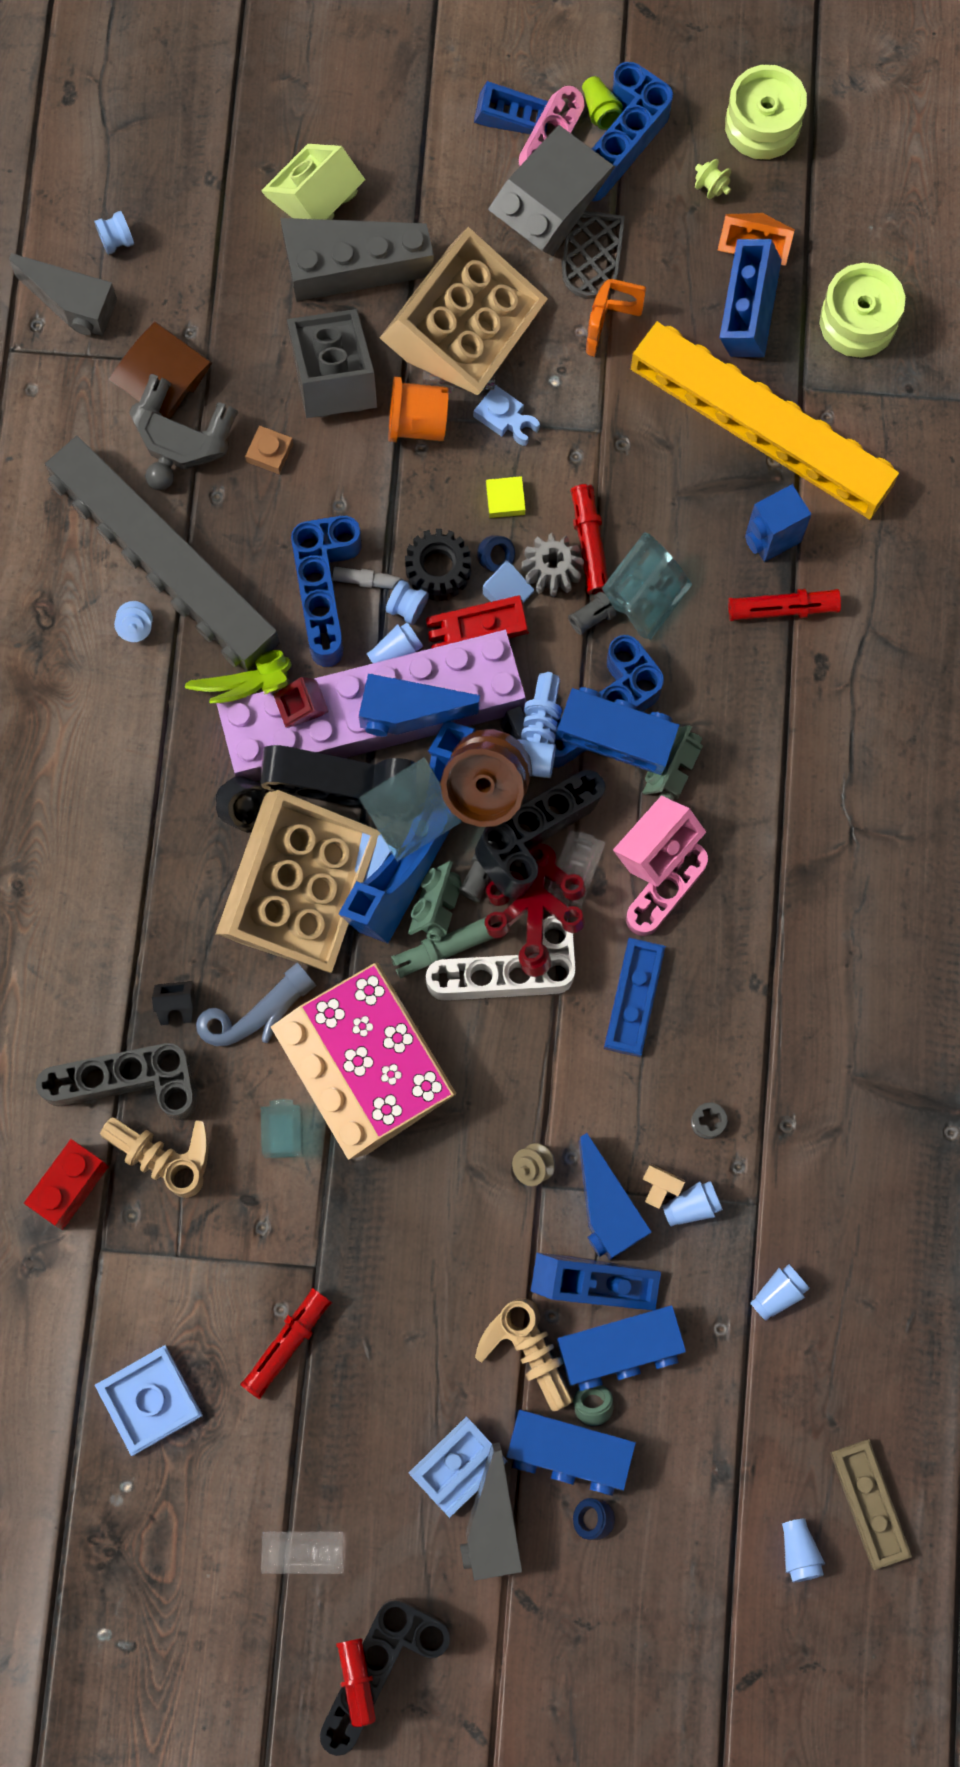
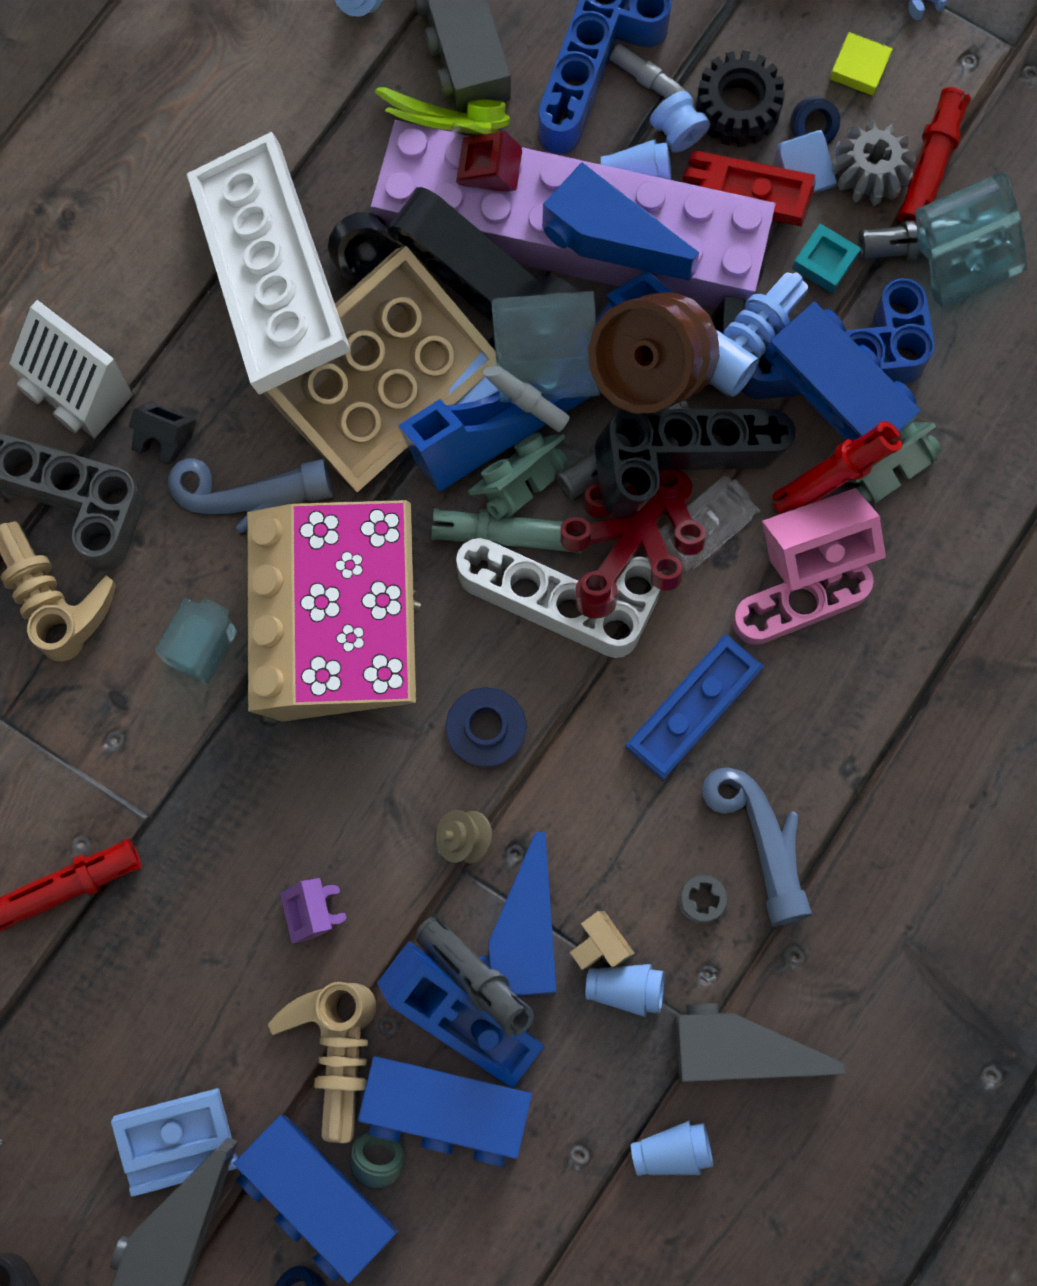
camera: 30 degrees right, 0 degrees up
(90, 997) = (67, 372): none -> white slope
(186, 849) = (267, 264): none -> white plate
(415, 850) = (527, 397): none -> light grey piece
(459, 1269) = (307, 910): none -> medium lavender tile
(506, 1103) = (491, 751): none -> dark blue piece
(556, 646) = (826, 258): none -> teal plate
(606, 1253) = (486, 987): none -> dark grey pin
(651, 783) = (848, 462): none -> red pin
(736, 1061) = (775, 848): none -> sand blue plant
(784, 1204) = (733, 1048): none -> dark grey slope

